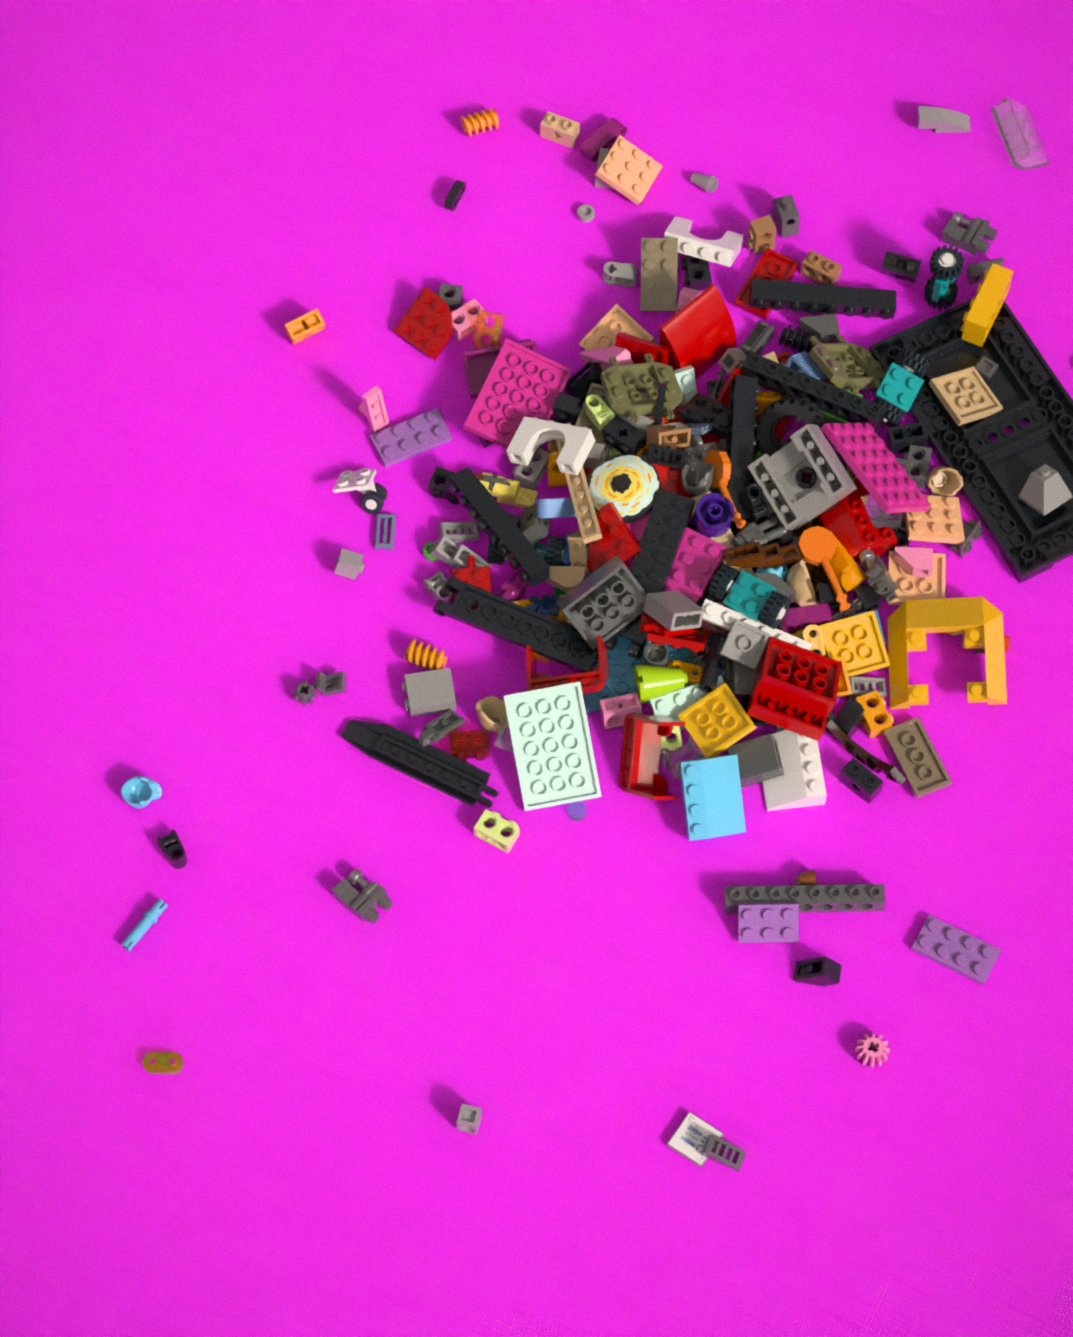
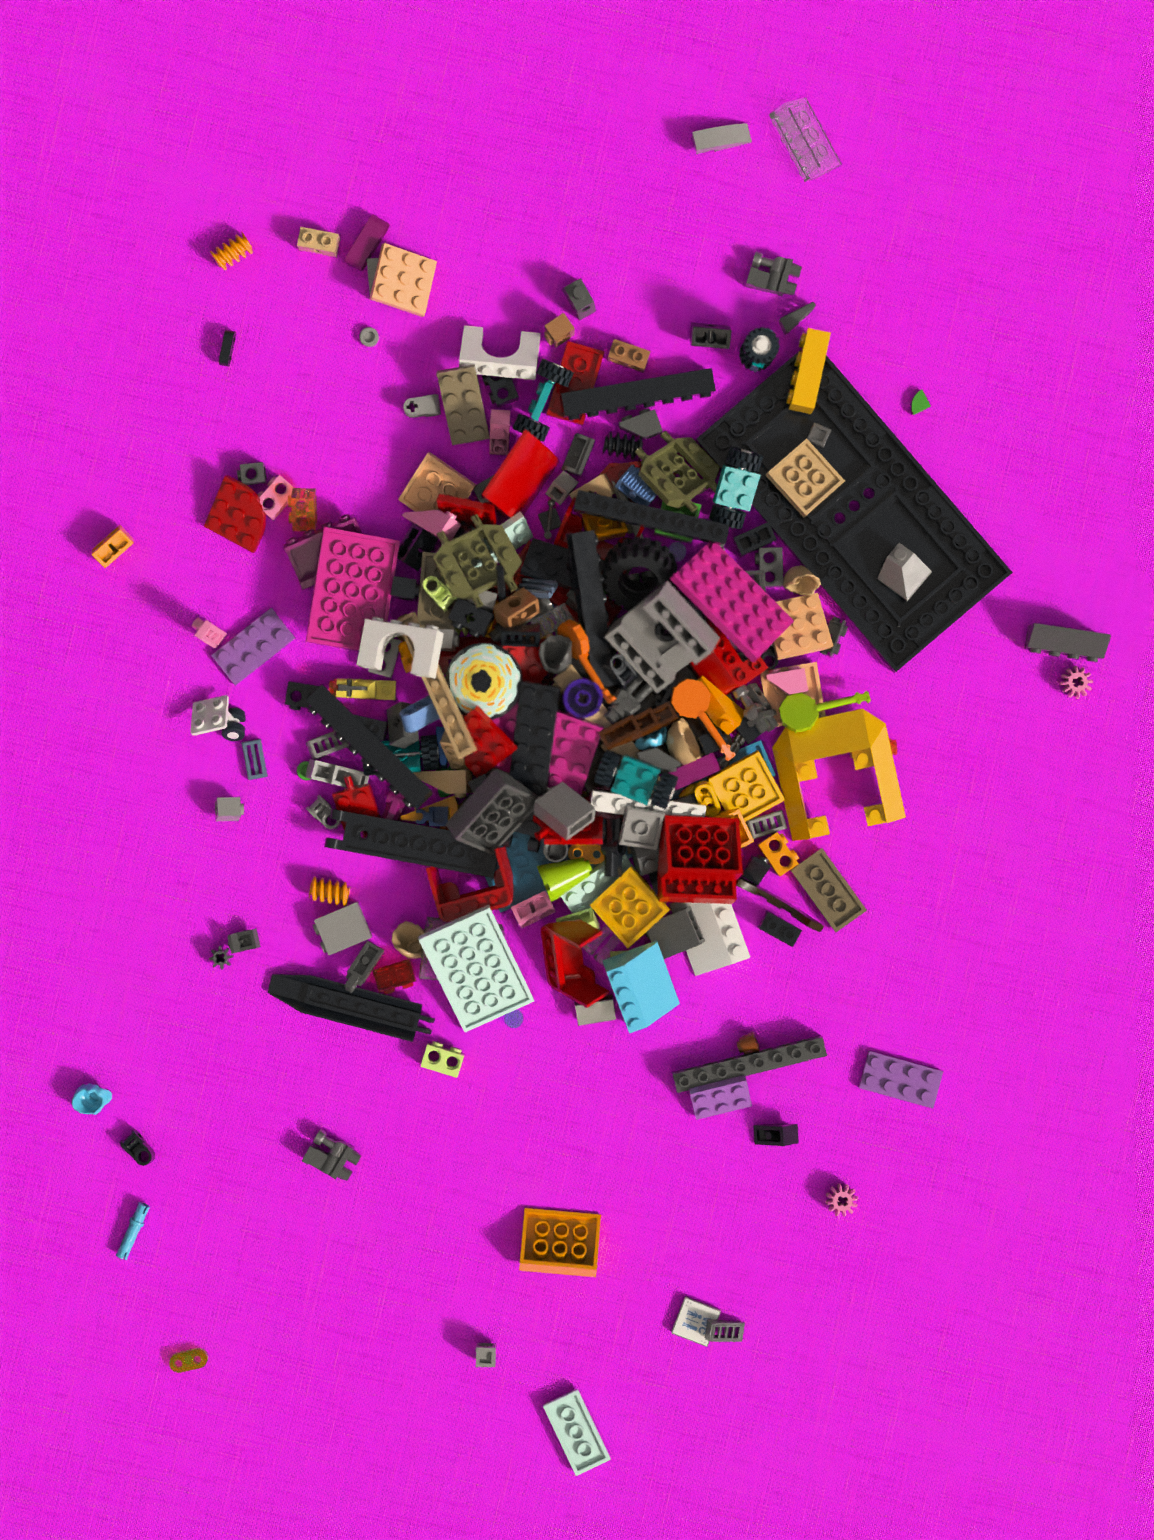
camera: 15 degrees left, 25 degrees up
(544, 1222) = (576, 1432): none -> light aqua plate
(572, 1030) = (560, 1242): none -> light orange slope
(660, 816) = (598, 1012): none -> hinge
(705, 182) = (486, 272): cone -> none
(745, 263) = (554, 373): none -> black plate
(923, 589) = (800, 711): none -> lime piece

